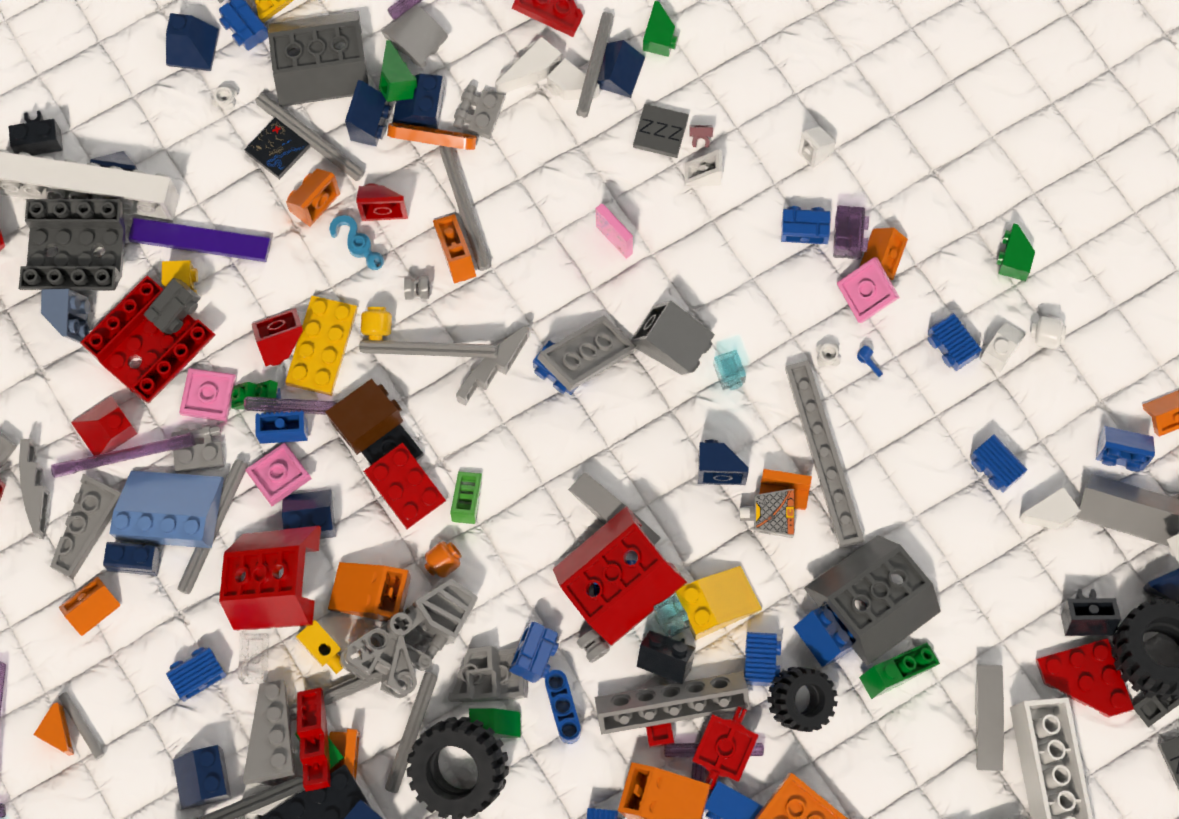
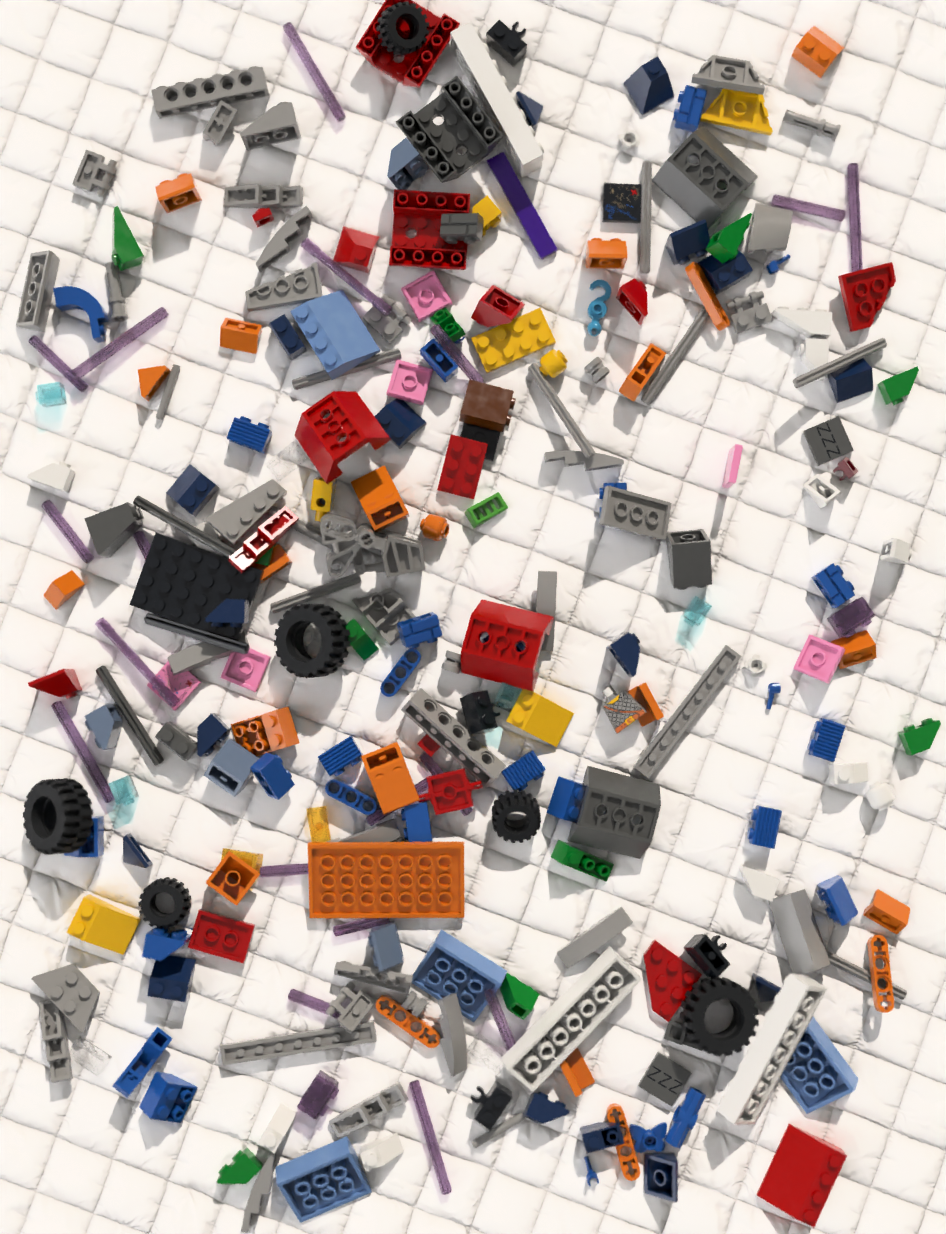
camera: 50 degrees right, 15 degrees up
(454, 59) = (773, 267): none -> blue hand

